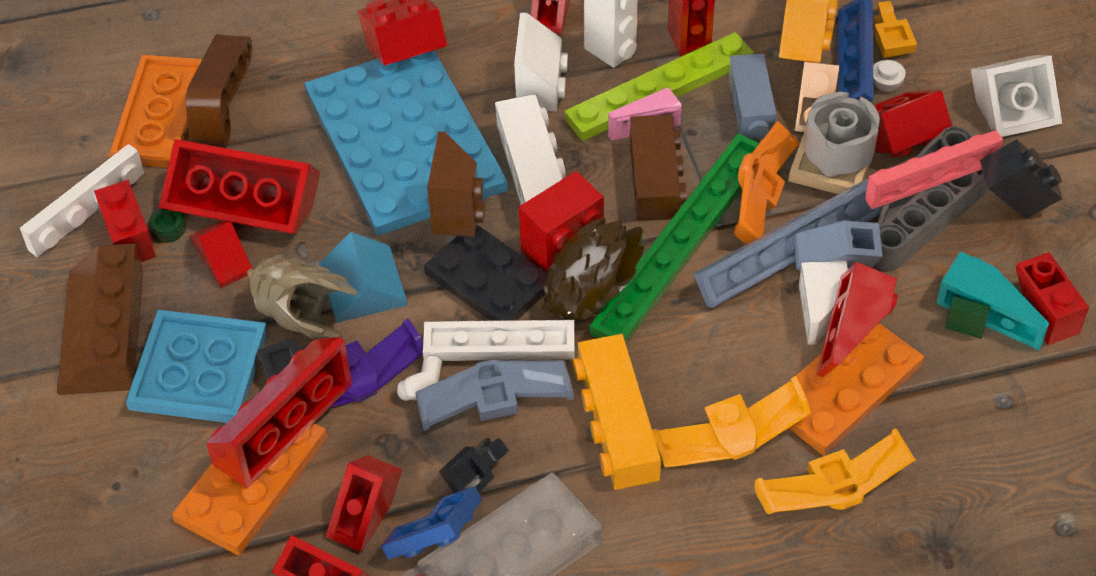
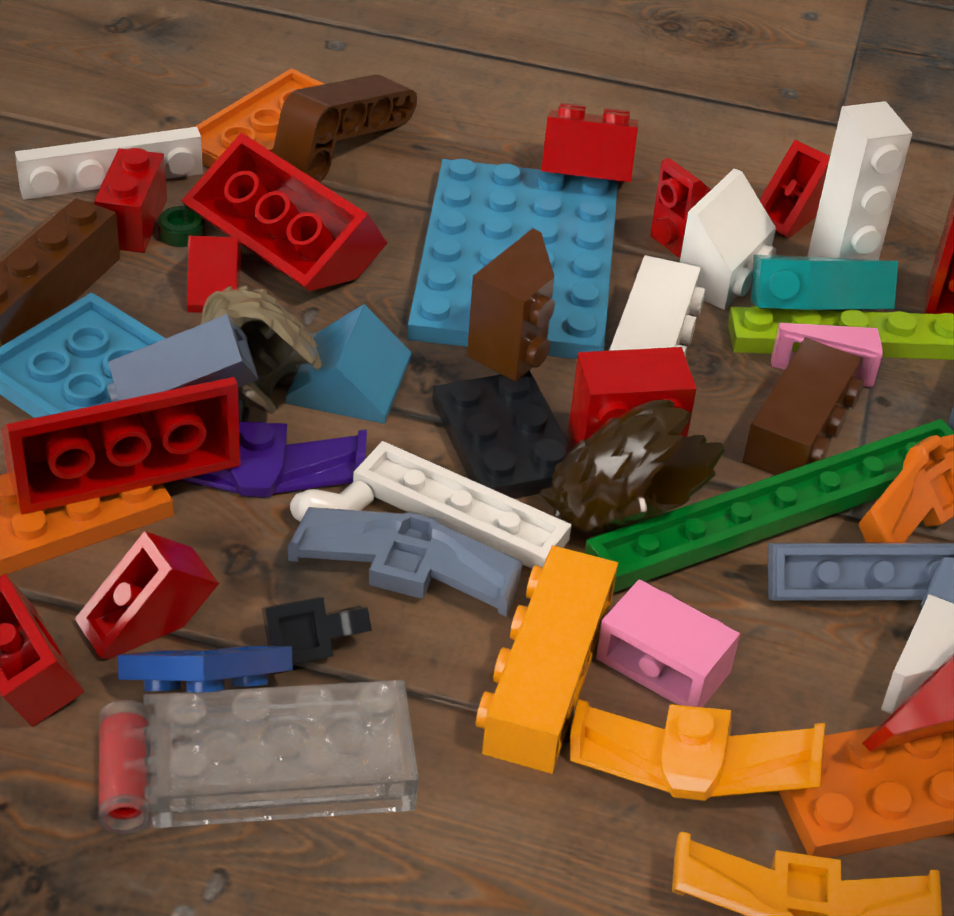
camera: 25 degrees right, 10 degrees down
(279, 341) = (185, 359): none -> sand blue brick
(493, 52) = (676, 195): none -> red slope
(611, 68) = (823, 283): none -> teal slope
(677, 369) = (667, 645): none -> bright pink brick

